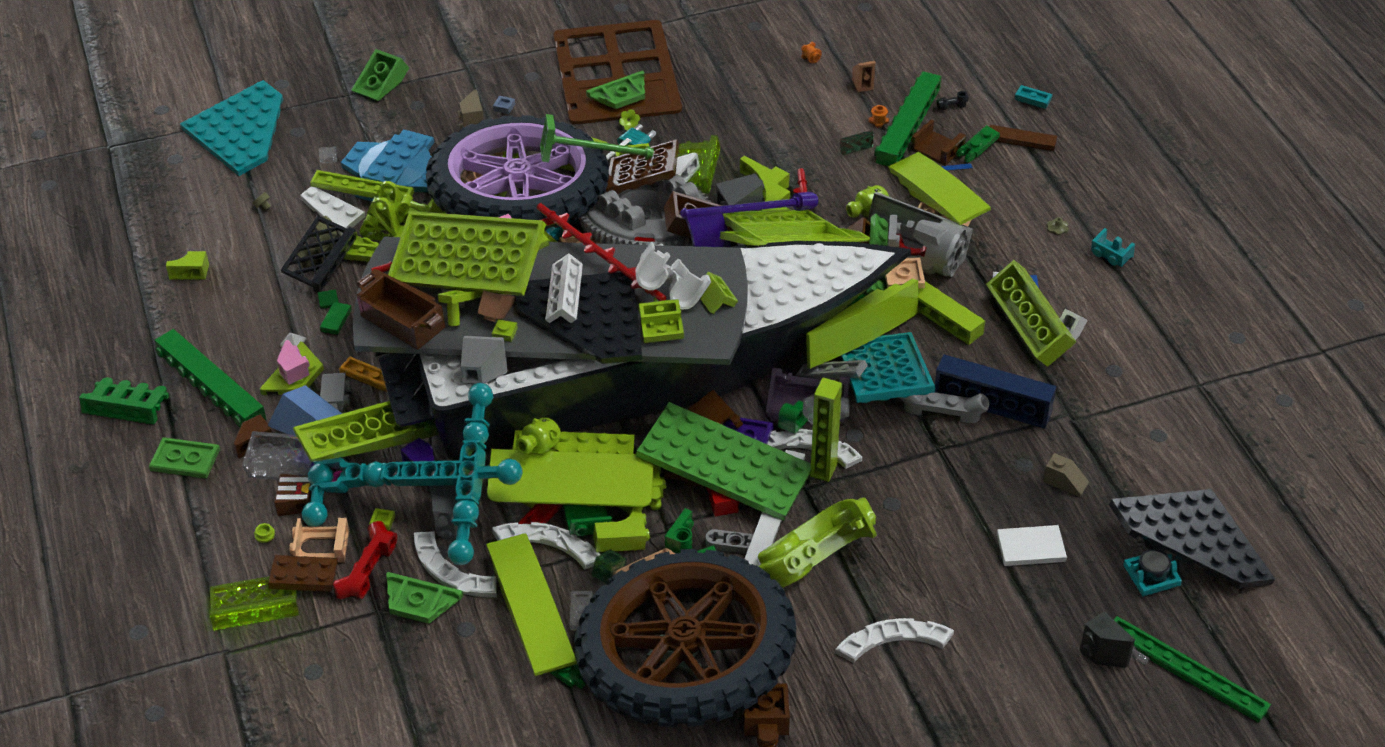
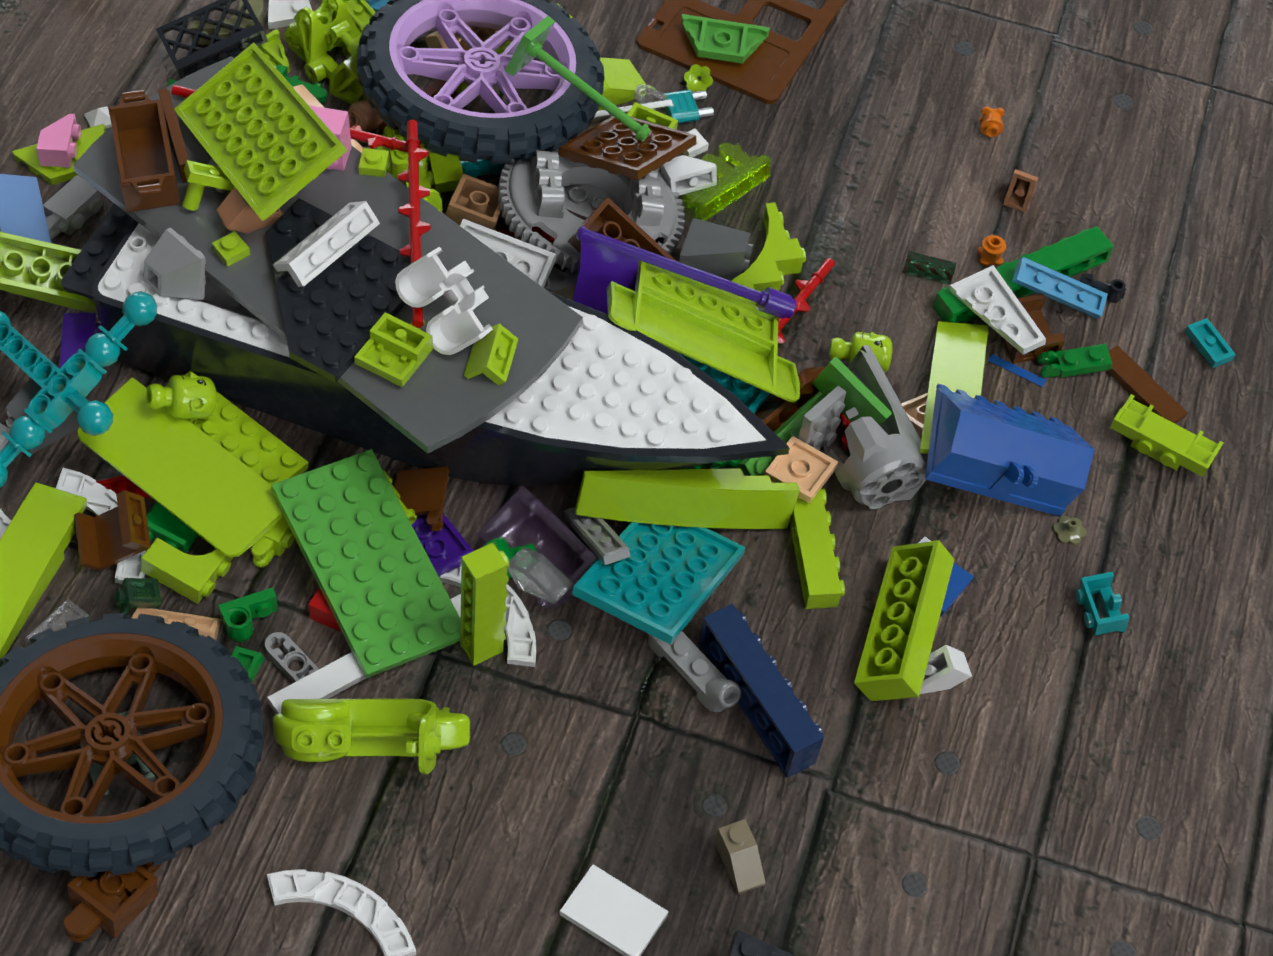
camera: 30 degrees right, 10 degrees up
(565, 538) = (113, 534): none -> reddish brown panel
(613, 139) = (648, 94): none -> clear slope
(881, 214) = (856, 395): none -> bright green tile
(916, 136) = (998, 306): none -> white wing
(936, 111) = (1059, 287): none -> dark azure plate
(1002, 201) = (1006, 452): none -> blue piece
(1060, 153) = (1164, 439): none -> lime bracket

